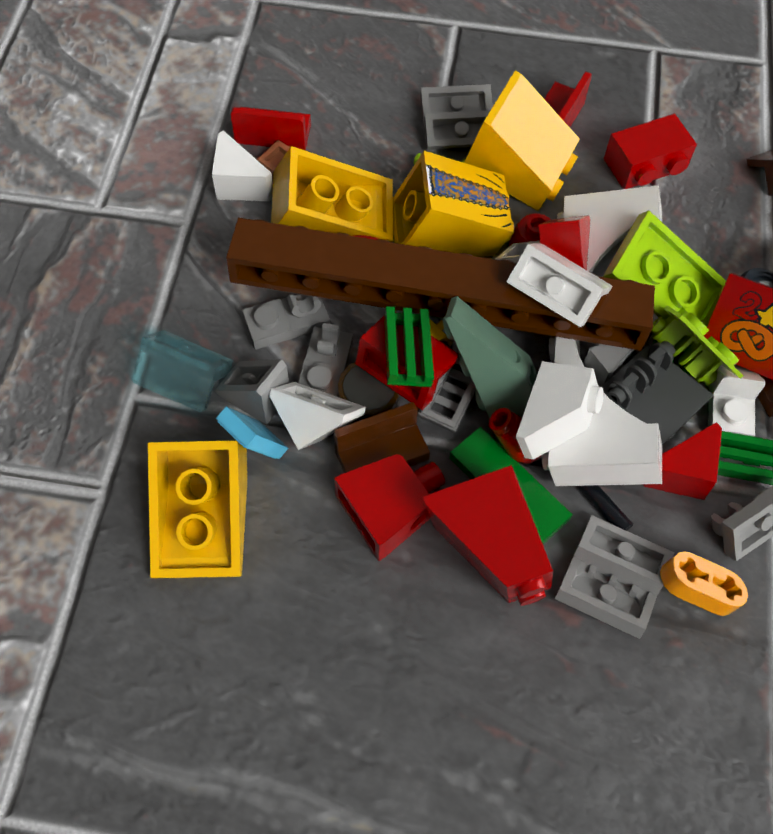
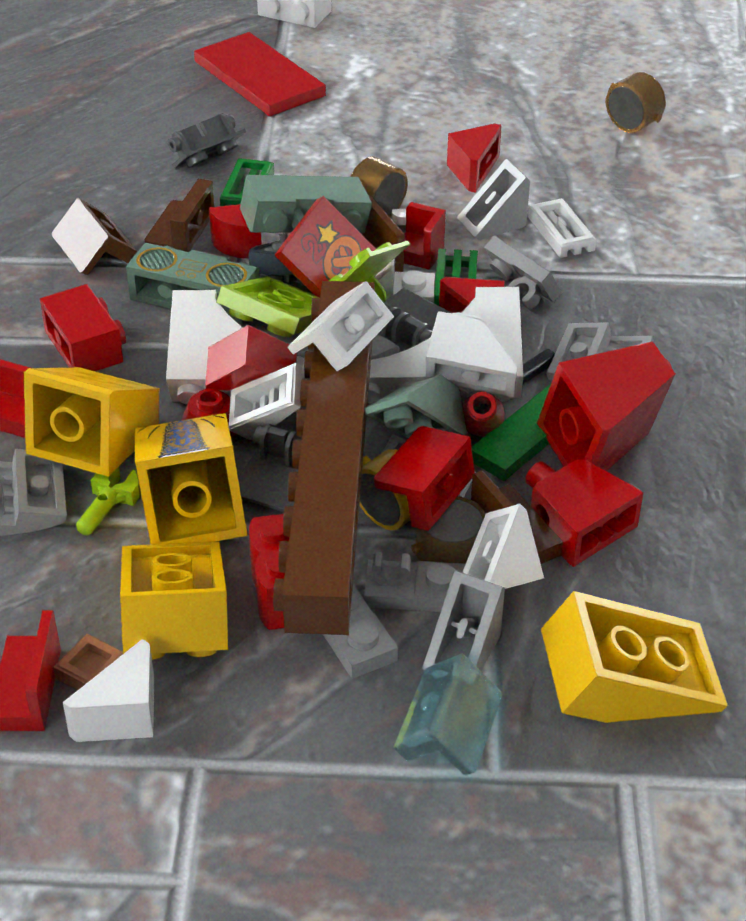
camera: 95 degrees left, 20 degrees down
(251, 433) = (544, 605): medium azure tile -> none
(408, 320) = (430, 449): green tile -> none
(703, 583) = (597, 302): light orange beam -> none
(732, 214) = (161, 269): none -> sand green piece

